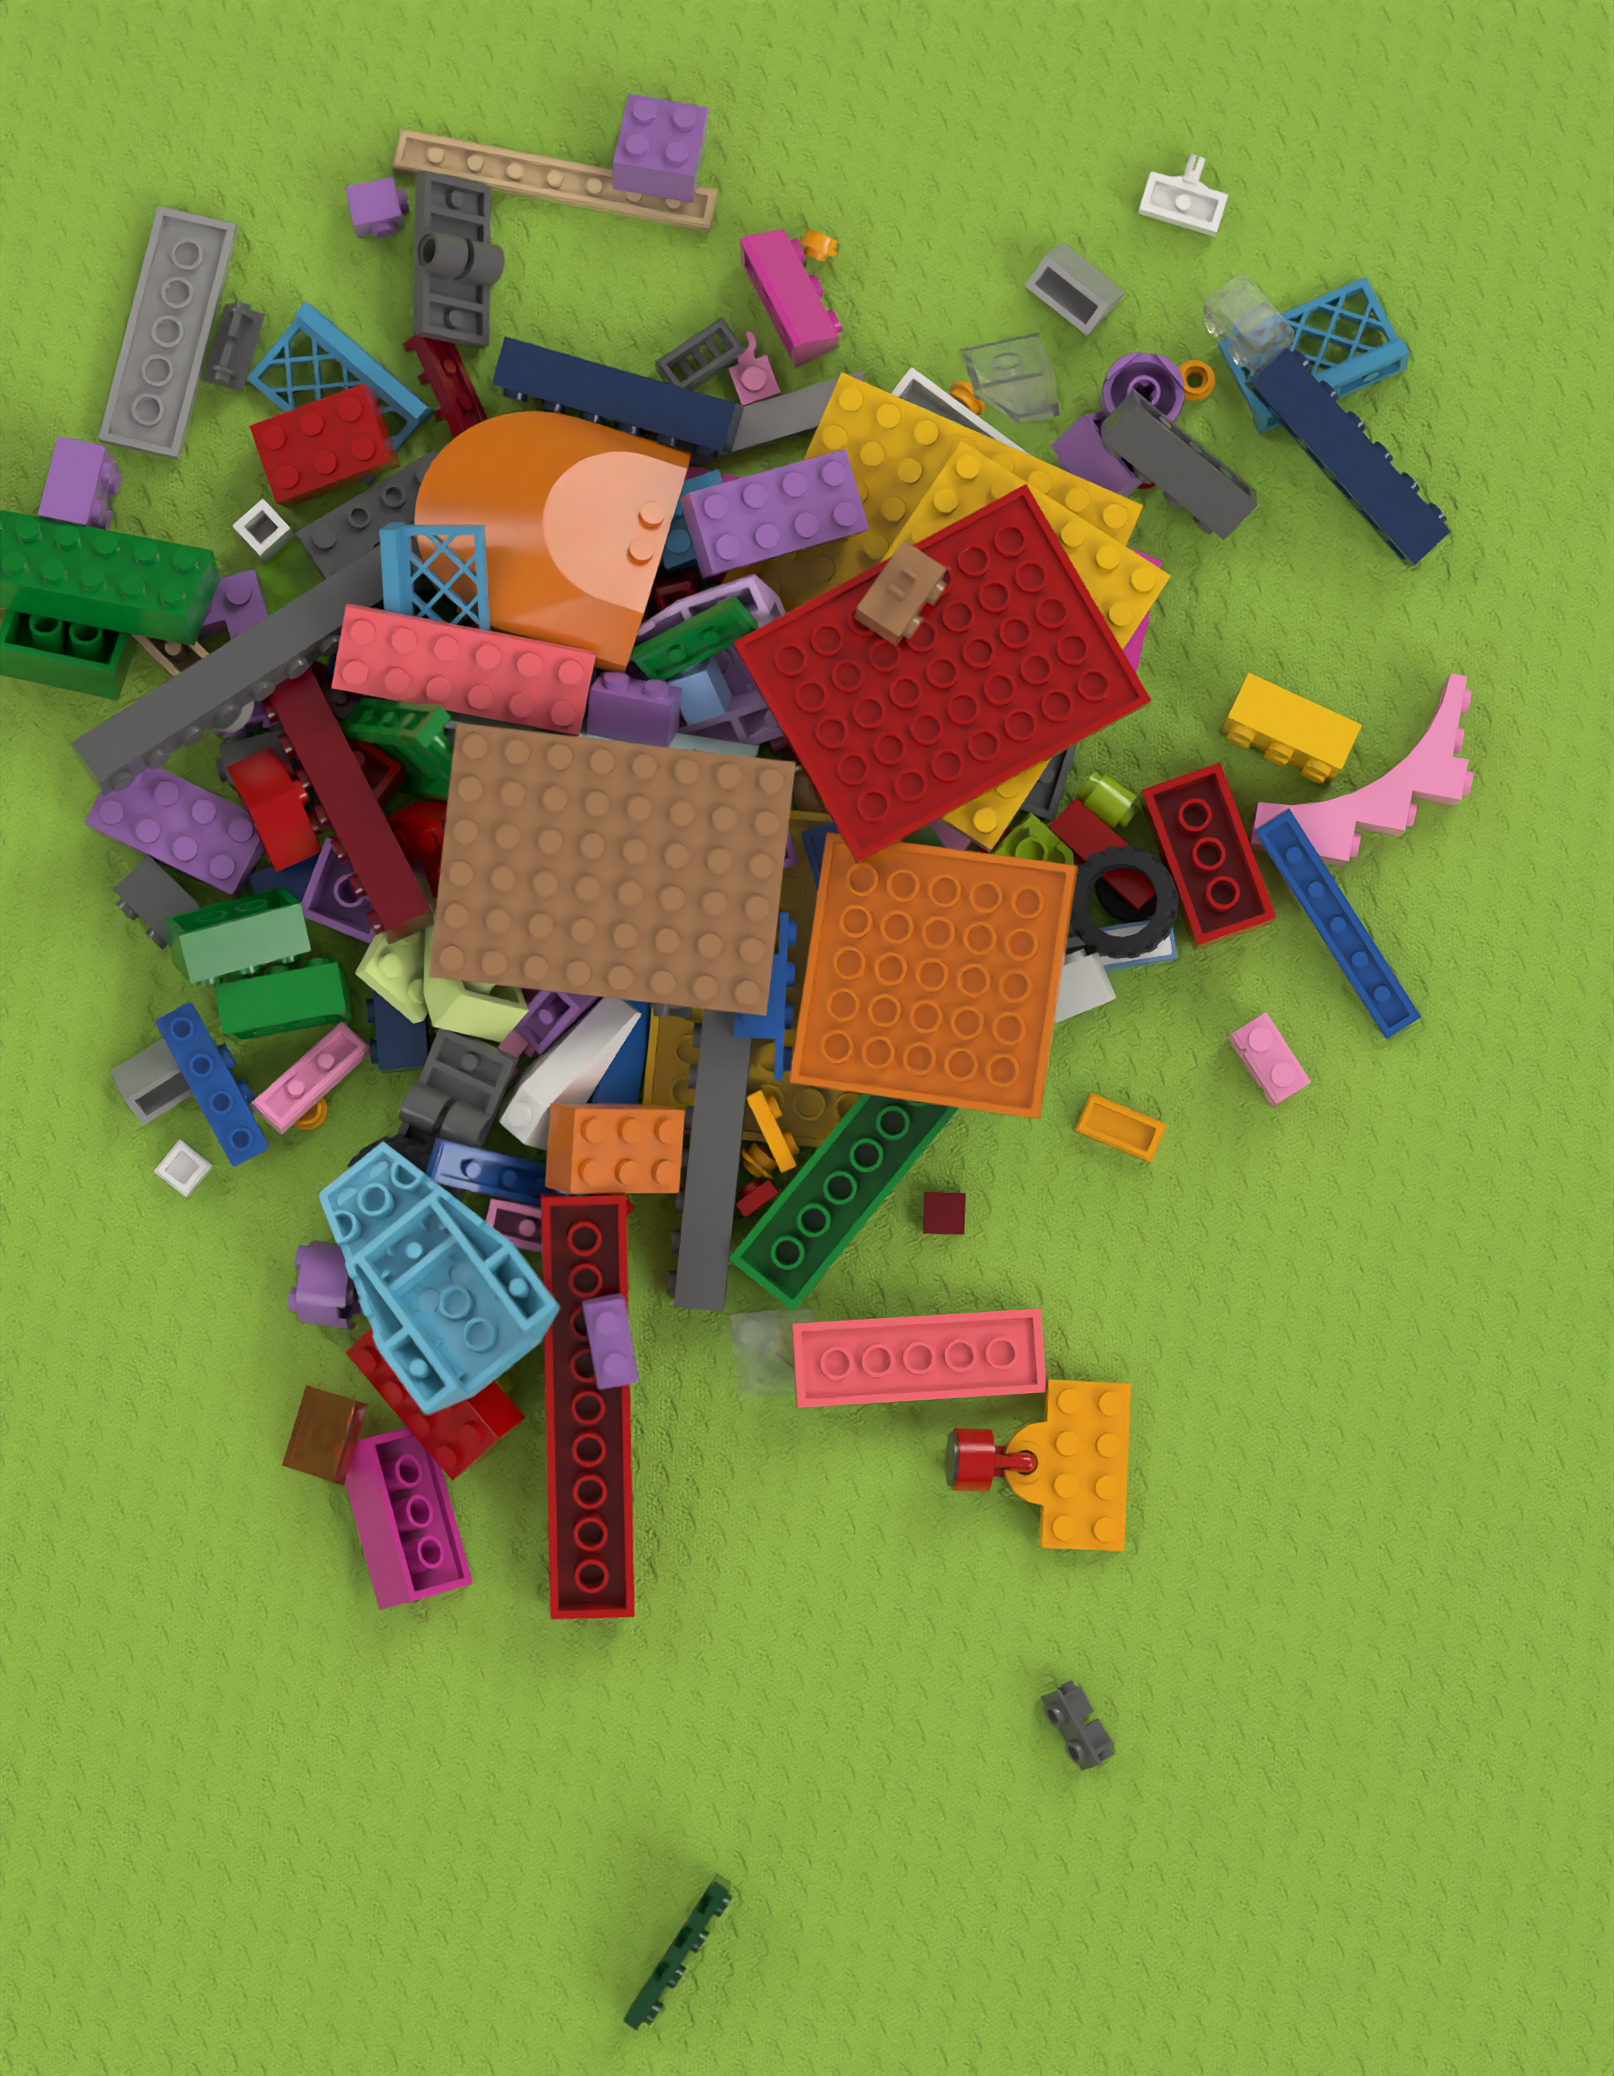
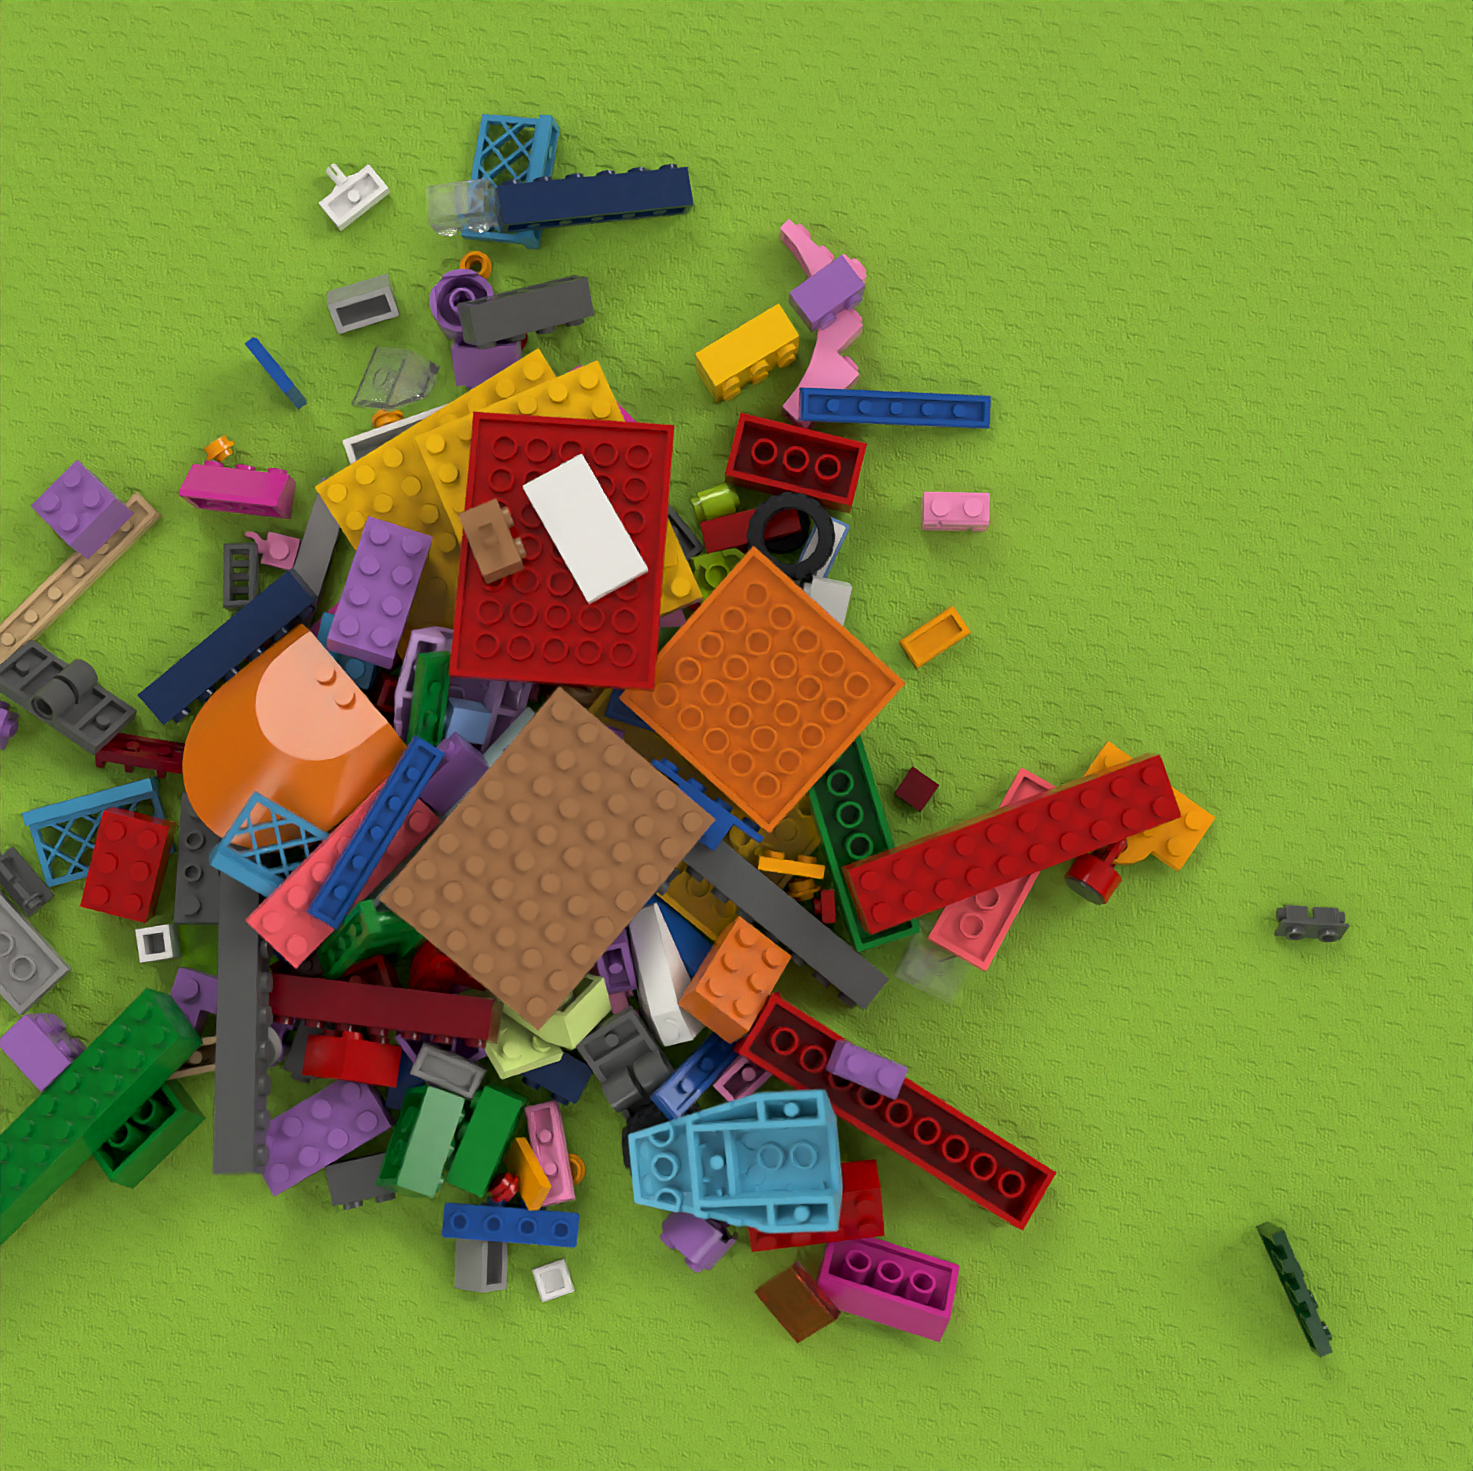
camera: 55 degrees left, 0 degrees up
(246, 1052) = (504, 1187): none -> red plate
(275, 1067) = (532, 1180): none -> light orange tile
(328, 914) = (448, 1070): none -> light grey tile
(523, 675) = (375, 832): none -> blue tile
(937, 250) = (276, 372): none -> blue tile
(949, 1344) = (1011, 842): none -> red brick
(978, 680) = (585, 528): none -> white tile
(1408, 770) = (827, 294): none -> medium lavender brick

